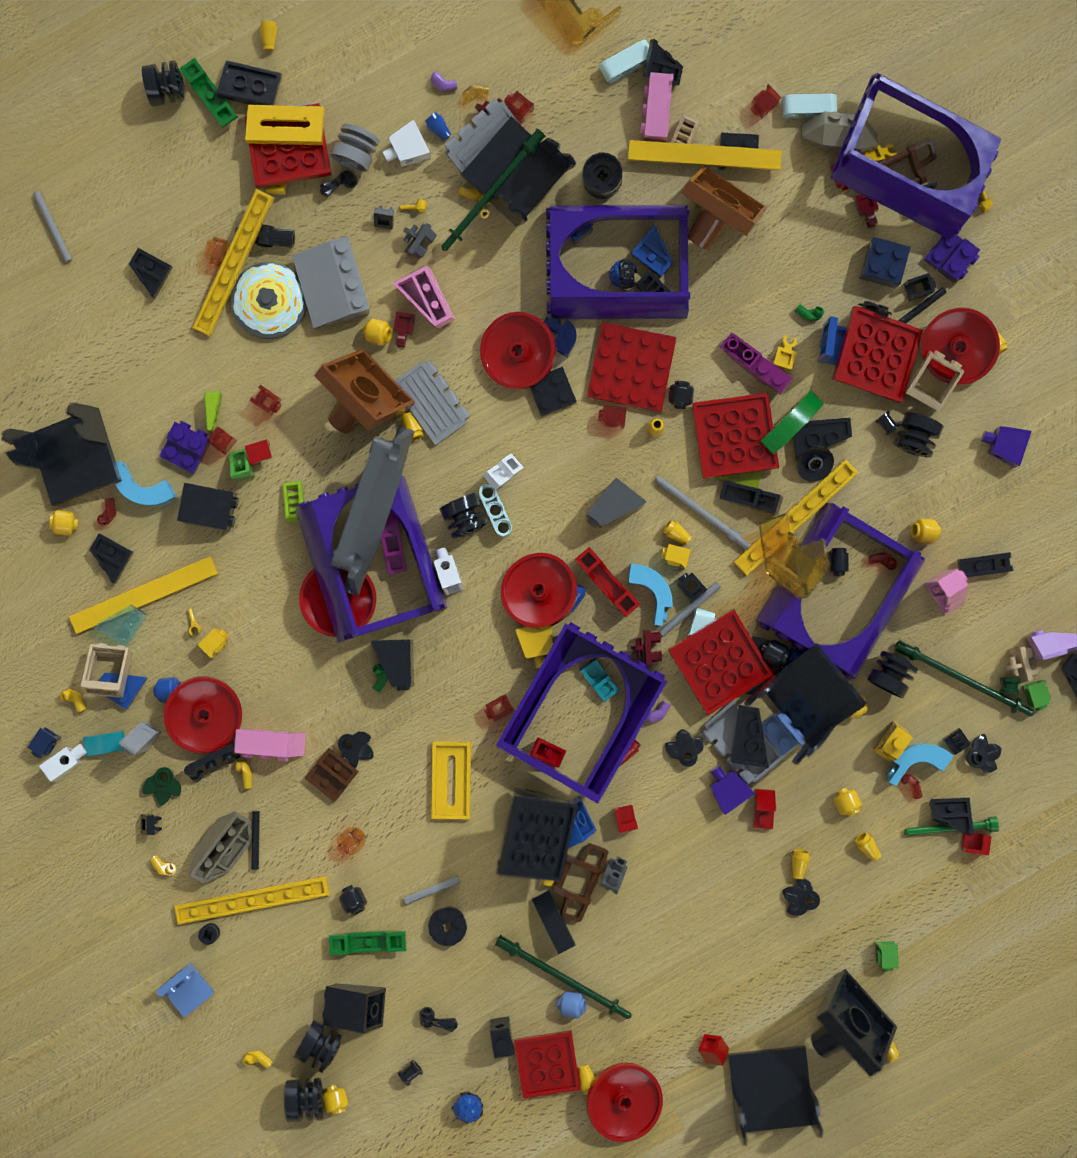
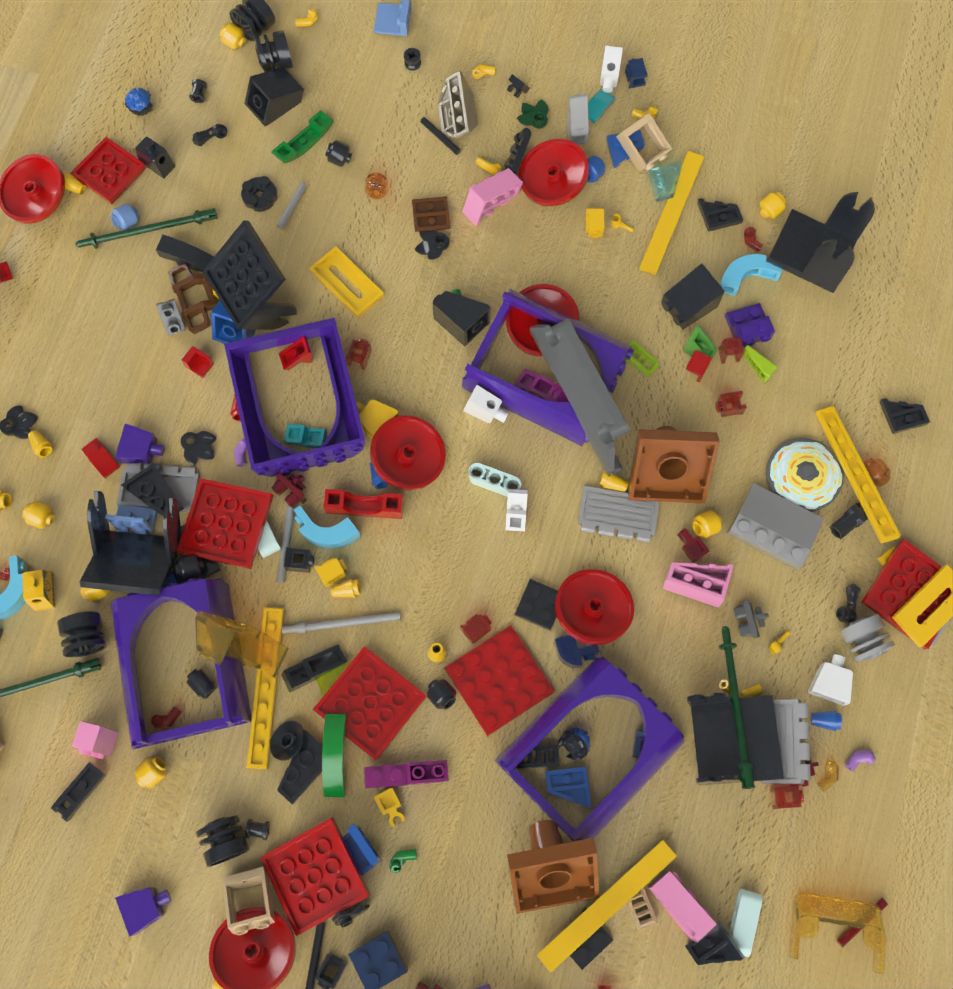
camera: 135 degrees right, 15 degrees down
(251, 900) = (404, 102): yellow tile -> none
(384, 218) = (791, 610): black tile -> none
(463, 514) = (512, 452): black wheel -> none
(602, 164) = (680, 805): black wheel -> none
(614, 504) = (411, 562): dark grey slope -> none

